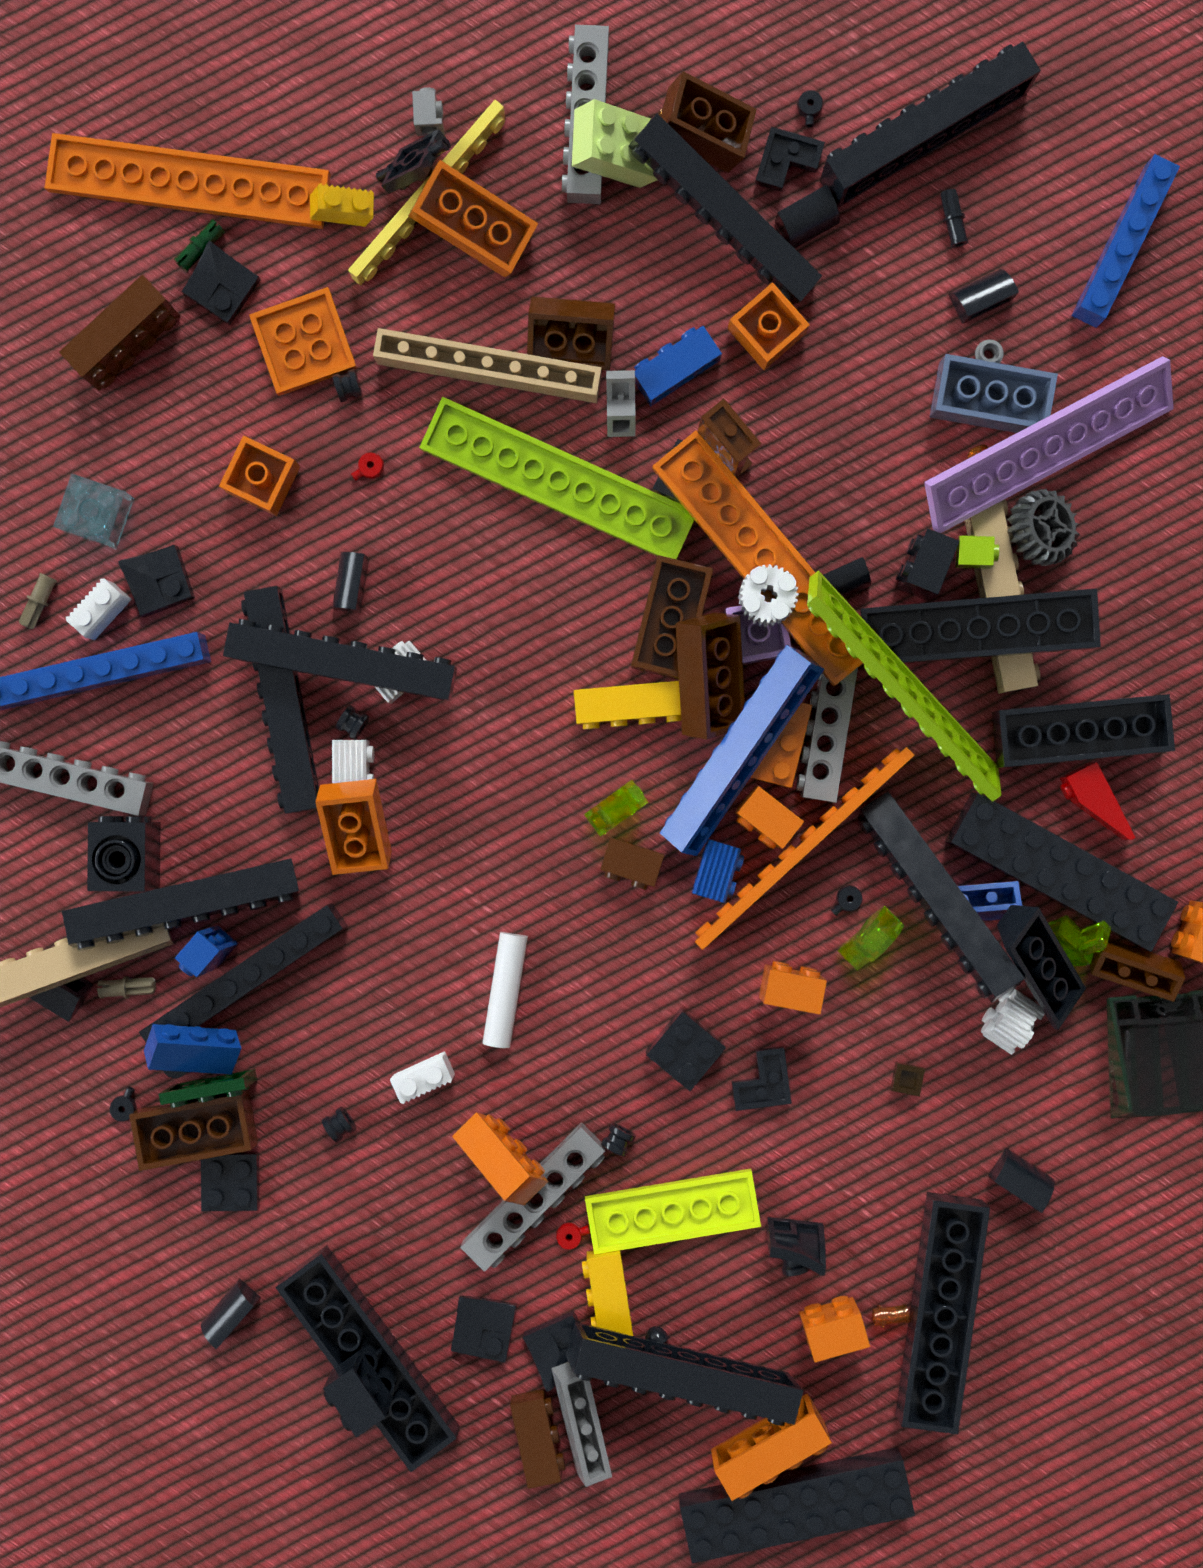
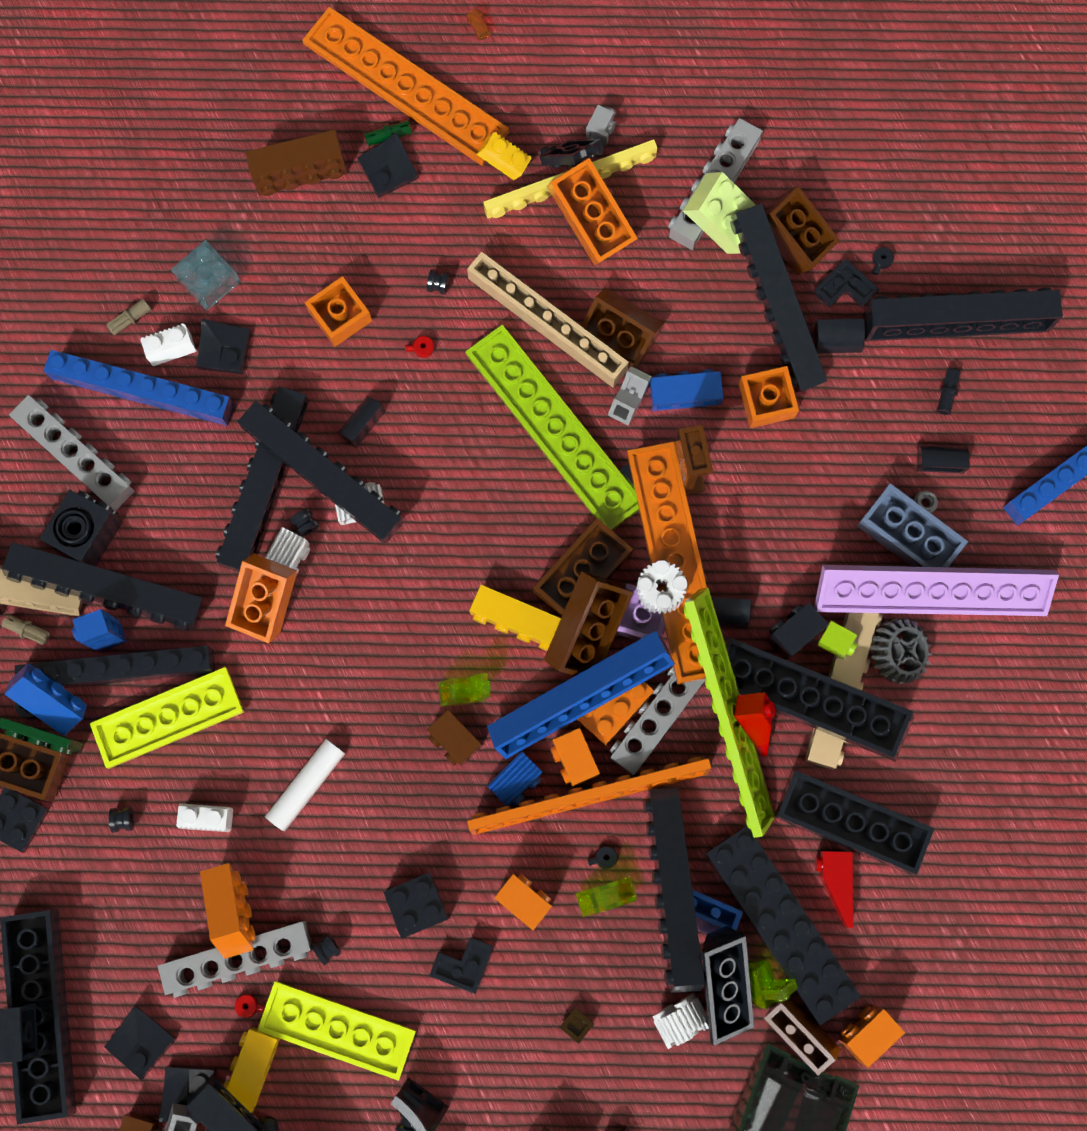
camera: 30 degrees right, 10 degrees down
(222, 61) = (476, 19): none -> clear orange pin
(303, 341) = (423, 235): orange plate -> none
(325, 998) = (166, 718): none -> neon yellow plate
(934, 679) = (755, 716): none -> red slope

